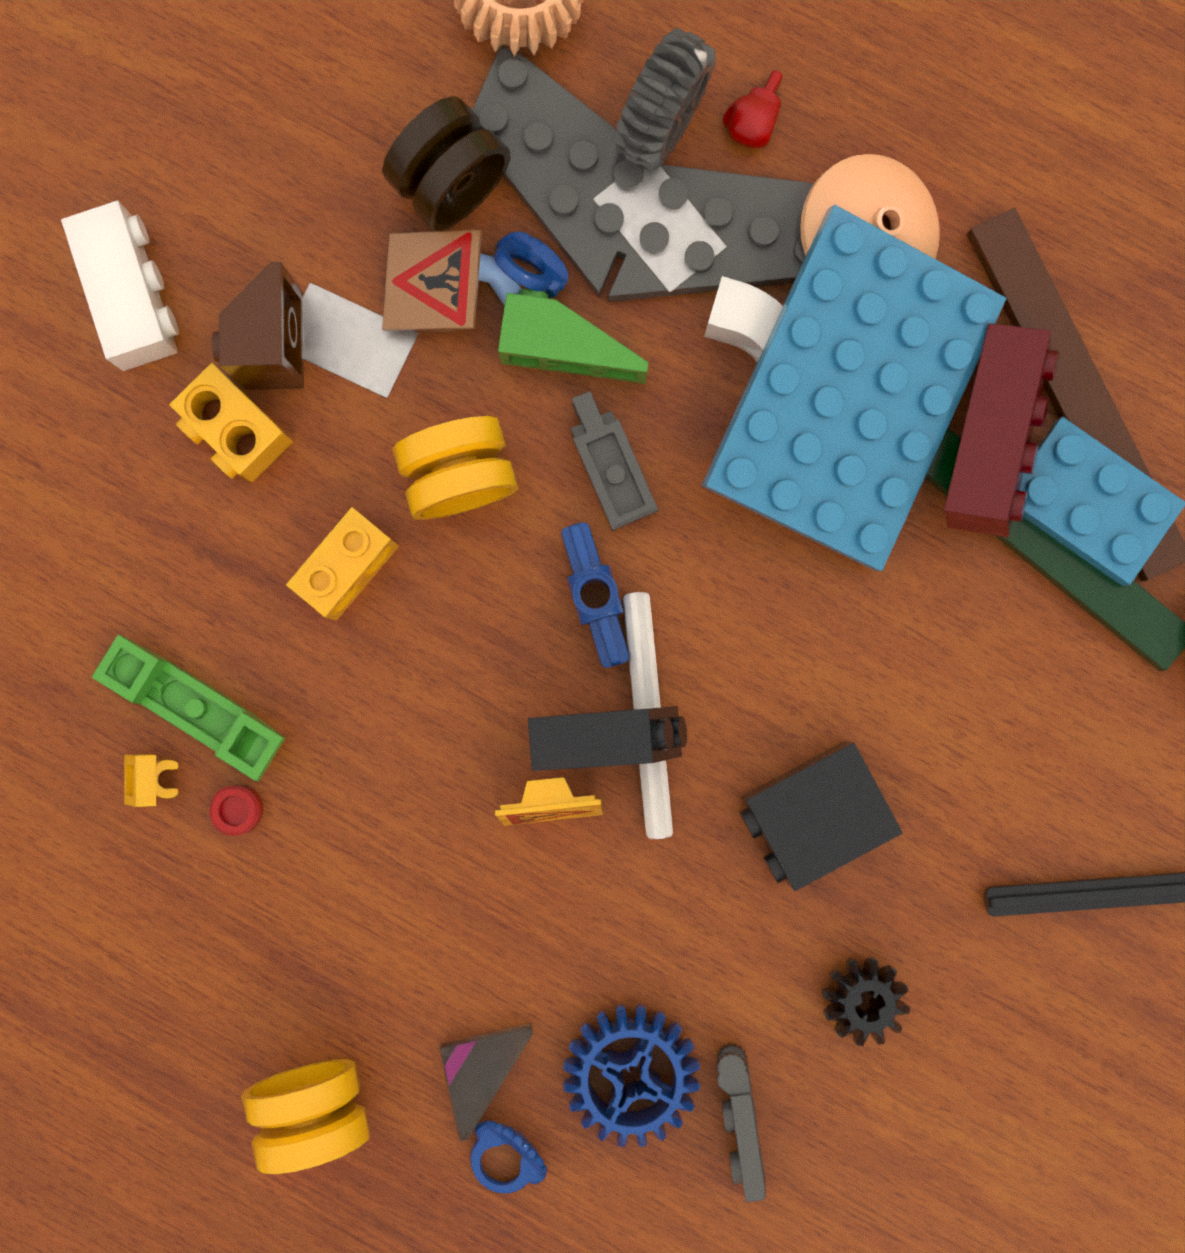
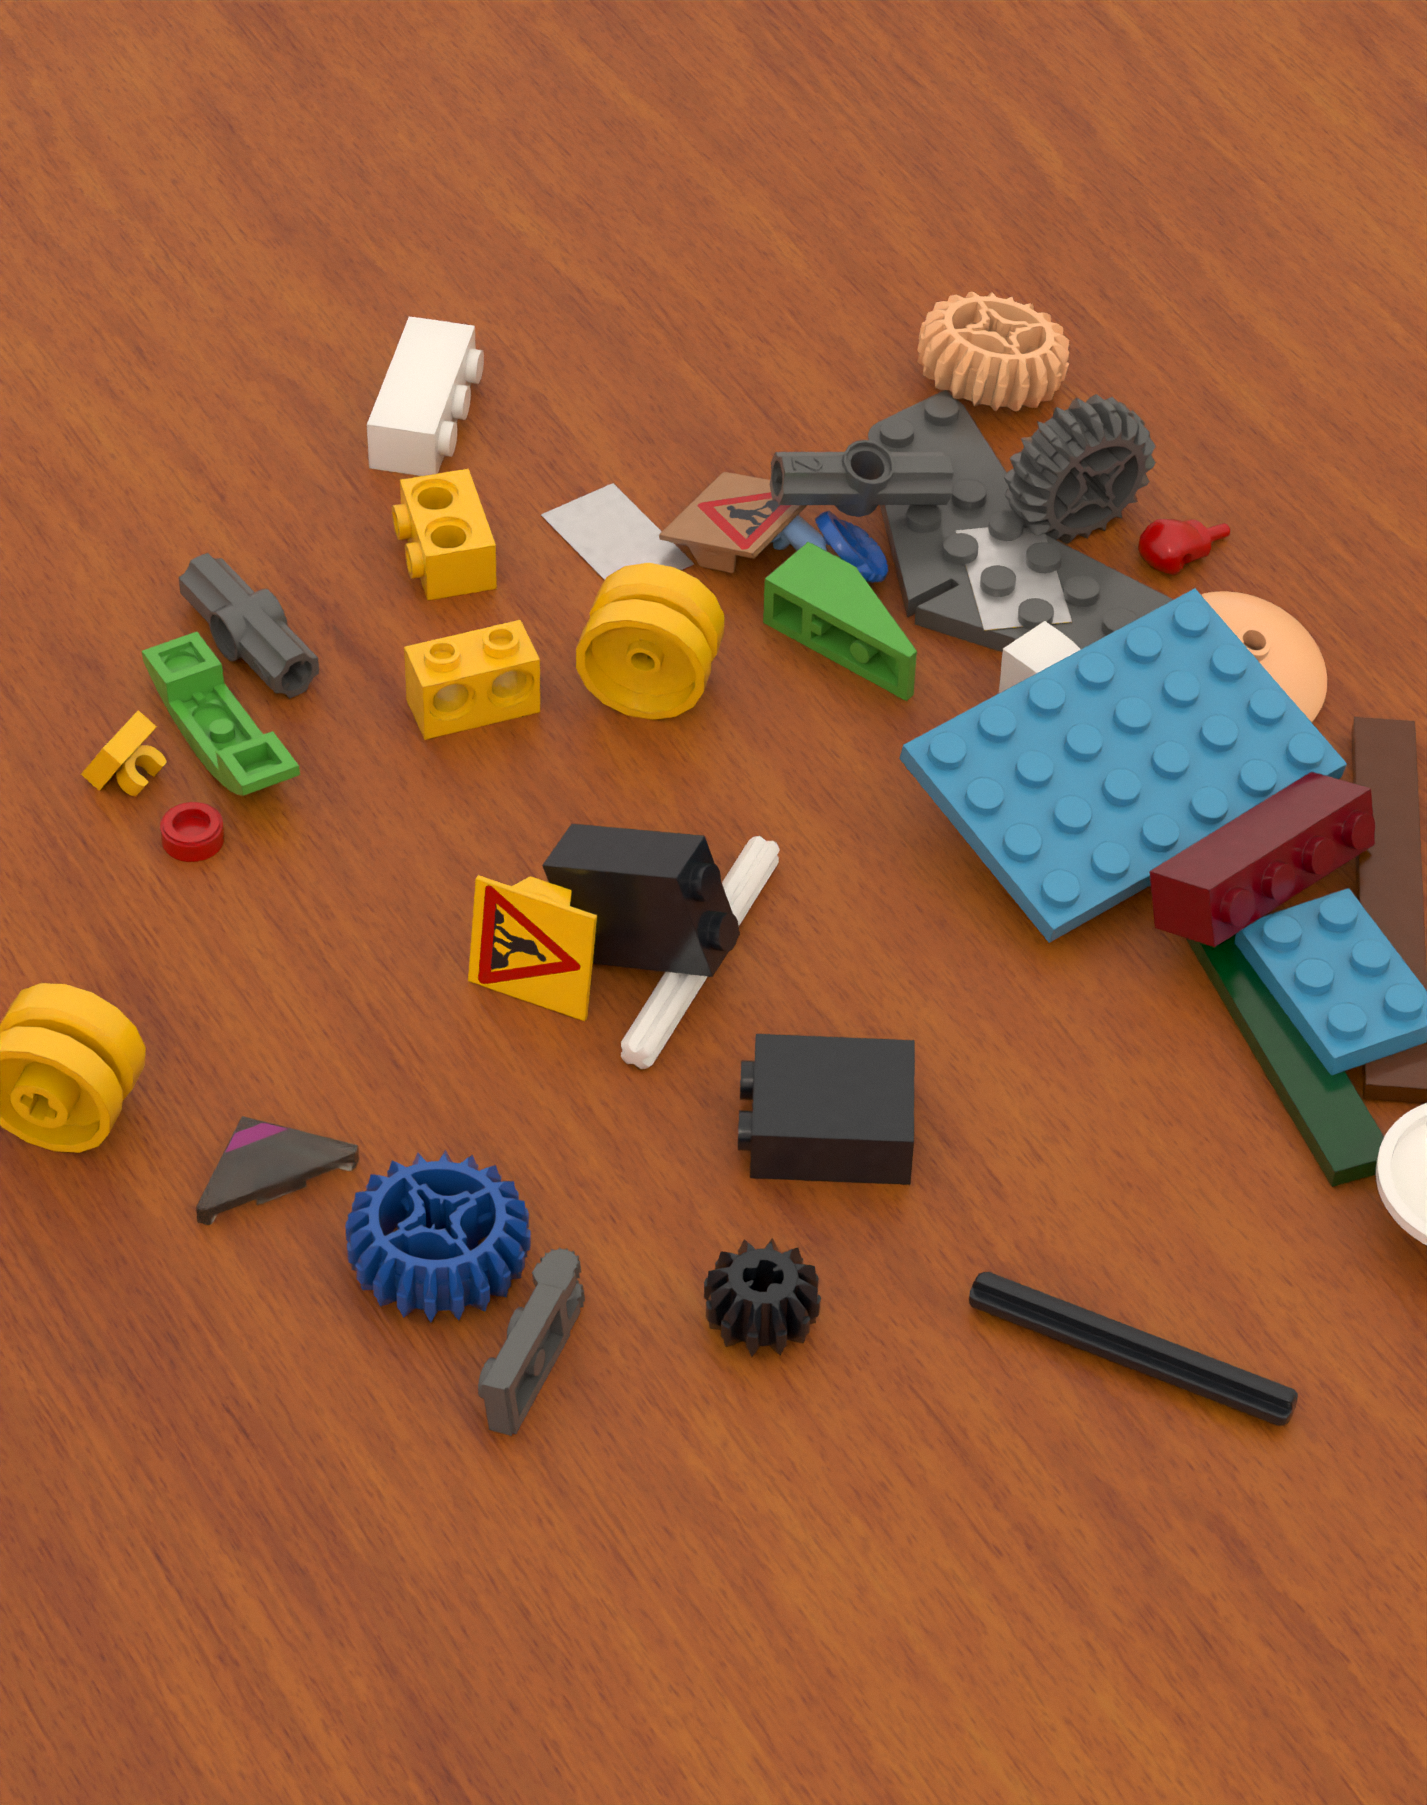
camera: 25 degrees right, 40 degrees down
(147, 599) = (249, 625): none -> dark grey piece
(263, 333) = (539, 469): reddish brown slope -> none
(445, 163) = (816, 407): dark brown wheel -> none
(491, 228) = (861, 478): none -> dark grey piece
(495, 1134) = (238, 1216): blue piece -> none
(588, 569) = (725, 806): blue axle -> none
(610, 464) = (817, 733): dark grey hinge -> none

